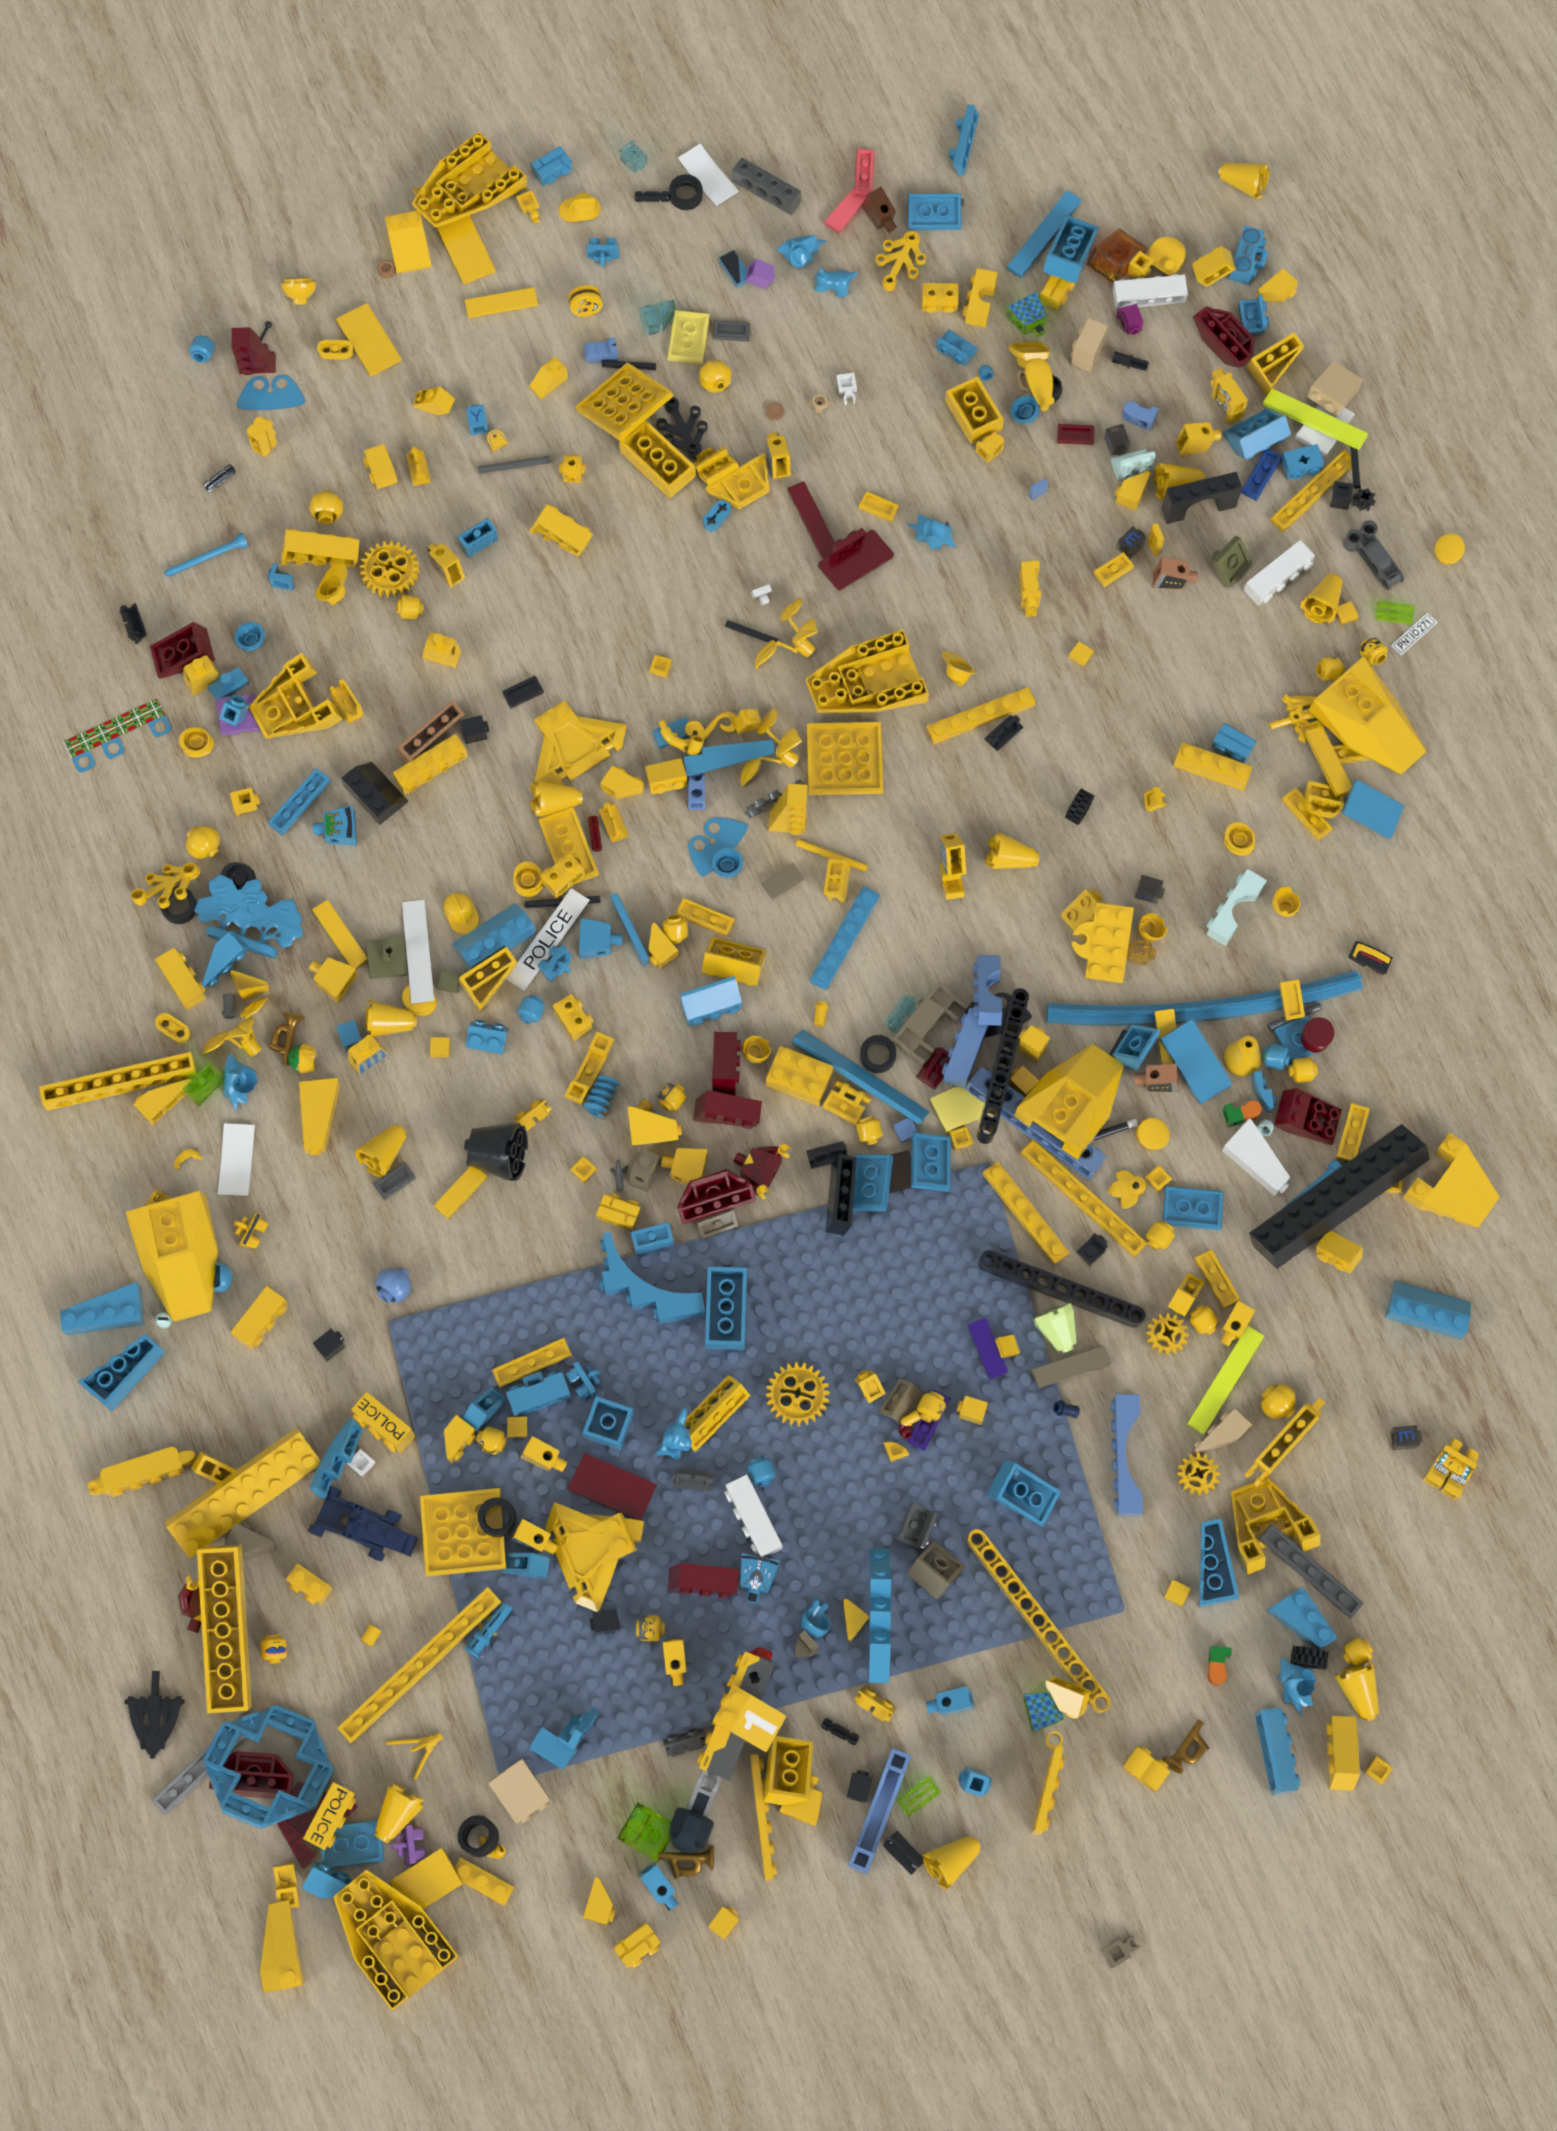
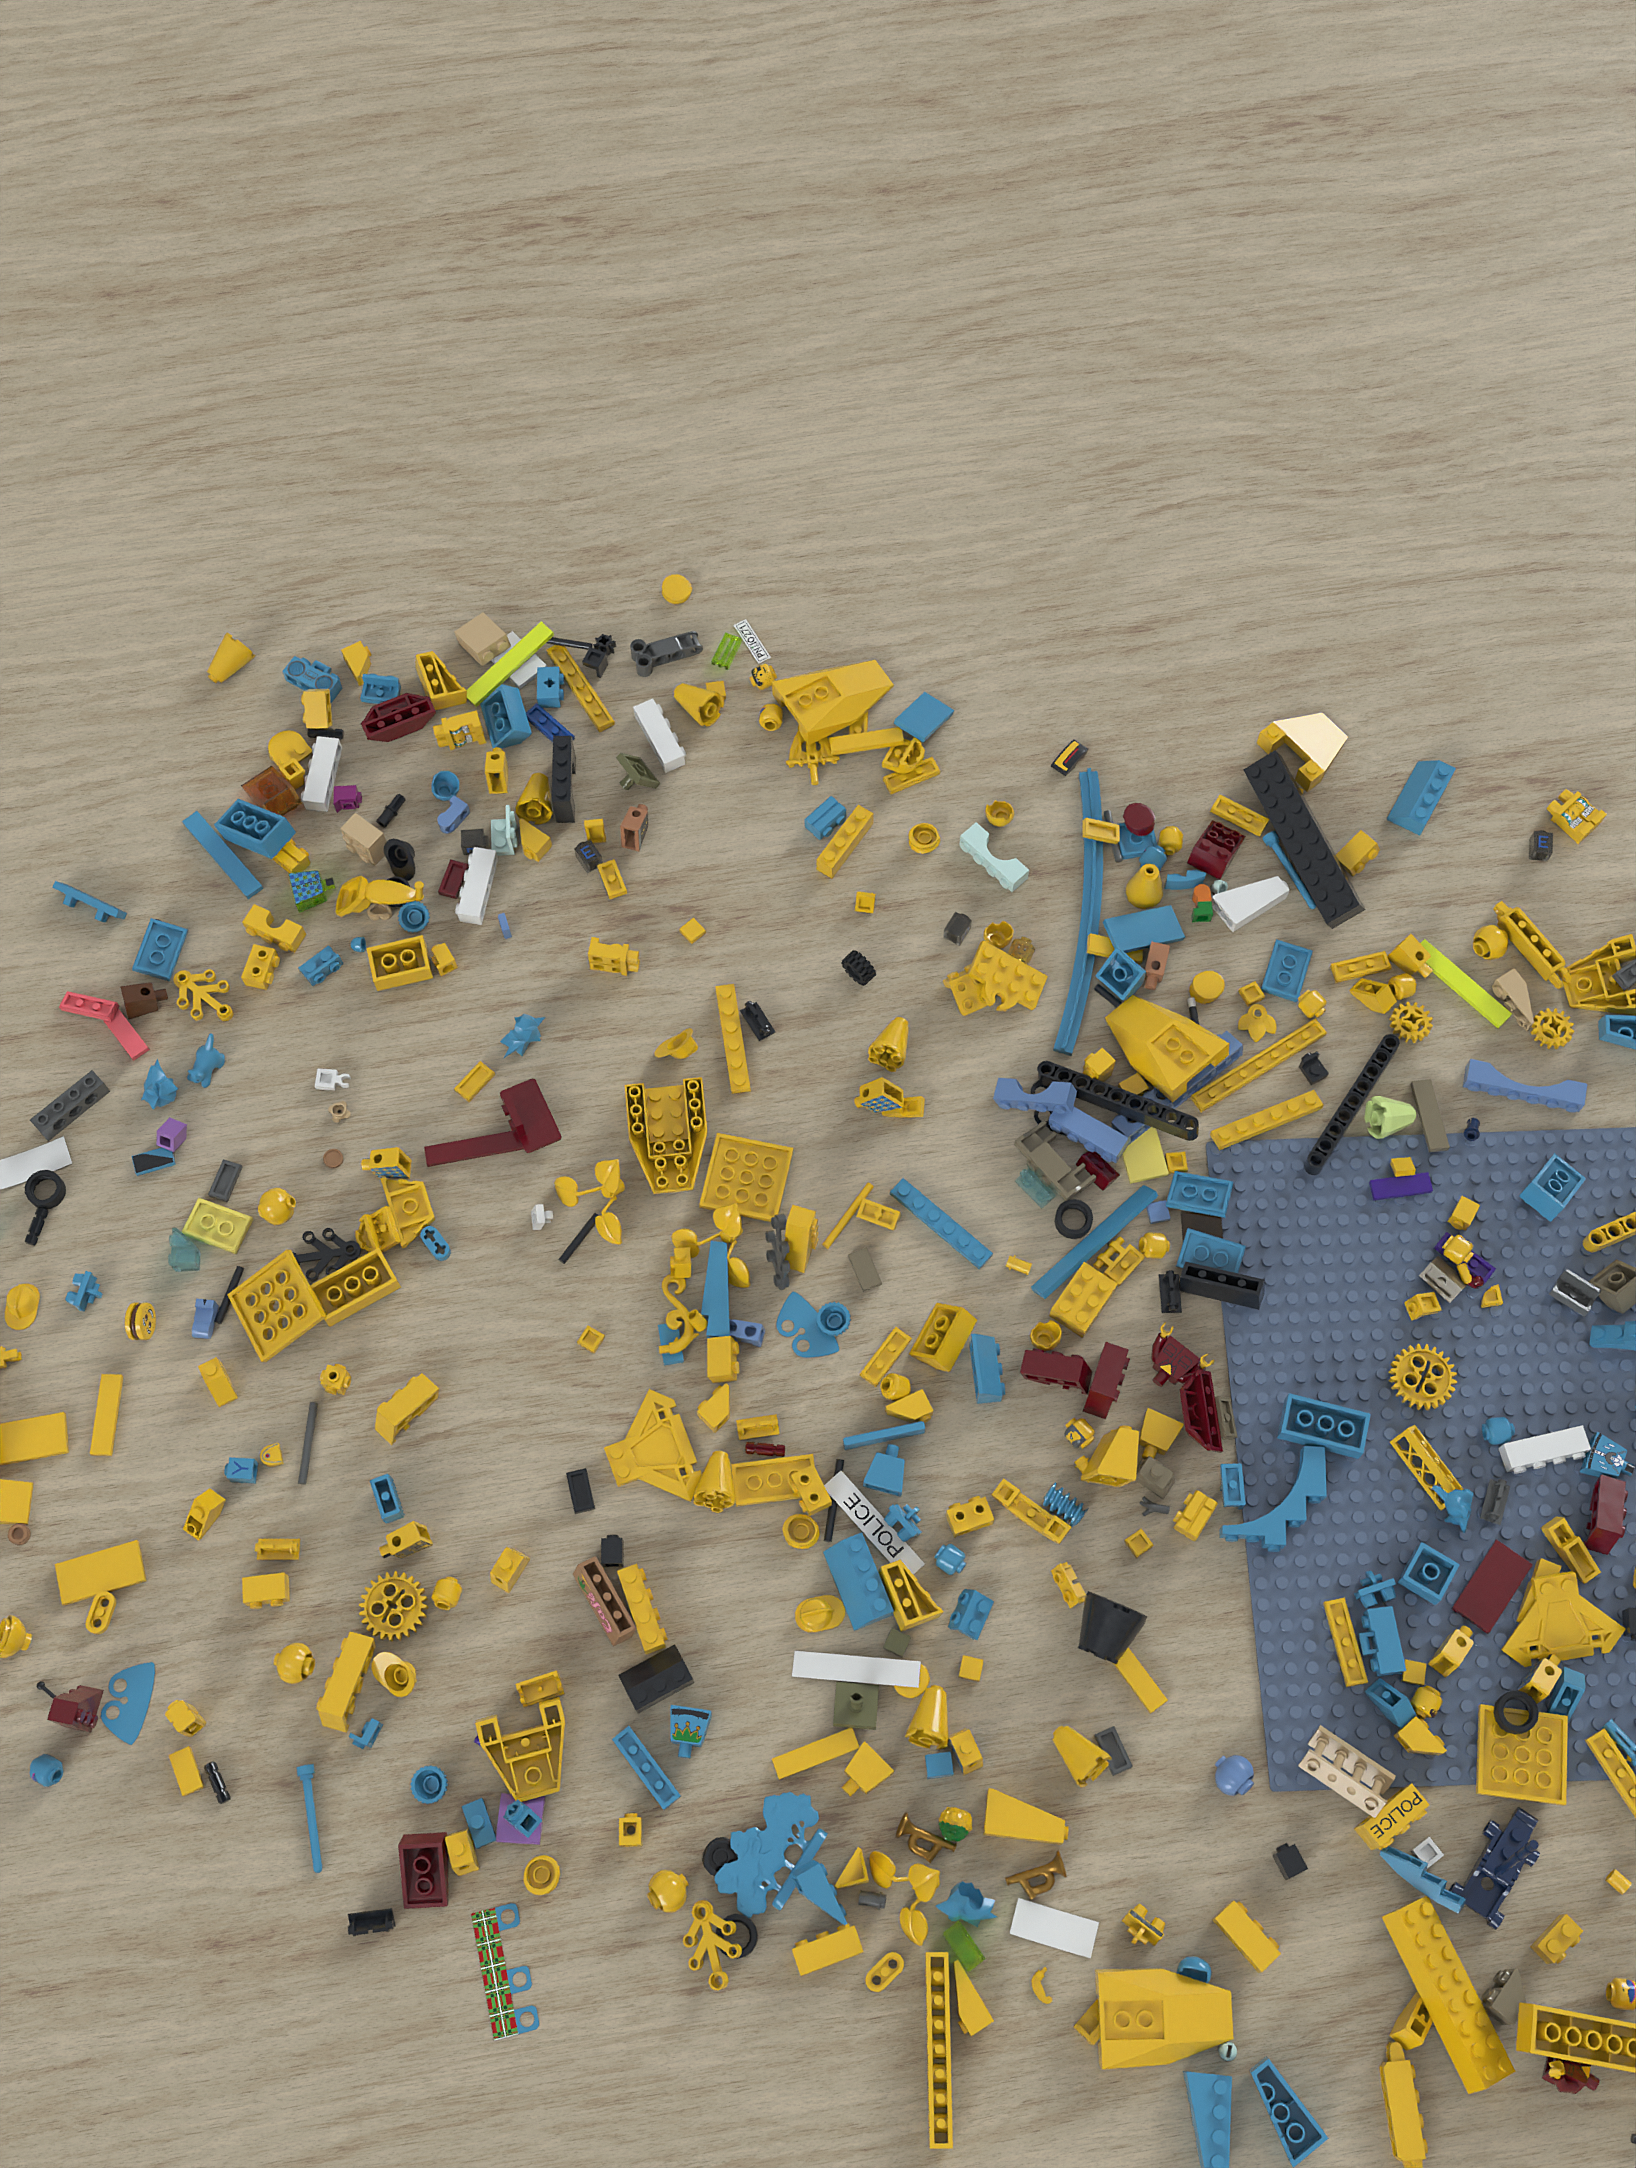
camera: 75 degrees left, 5 degrees down
(223, 452) = (186, 1771): none -> yellow tile
(286, 1150) = (1046, 1870): none -> pearl gold piece
(426, 1381) = (1352, 1761): none -> tan fence
(662, 1553) = (1570, 1549): none -> yellow slope
(1072, 455) = (477, 885): none -> white brick
(1082, 383) = (400, 858): none -> black piece
(1167, 399) = (445, 785): none -> dark azure hair
(1194, 285) = (325, 732): none -> black axle

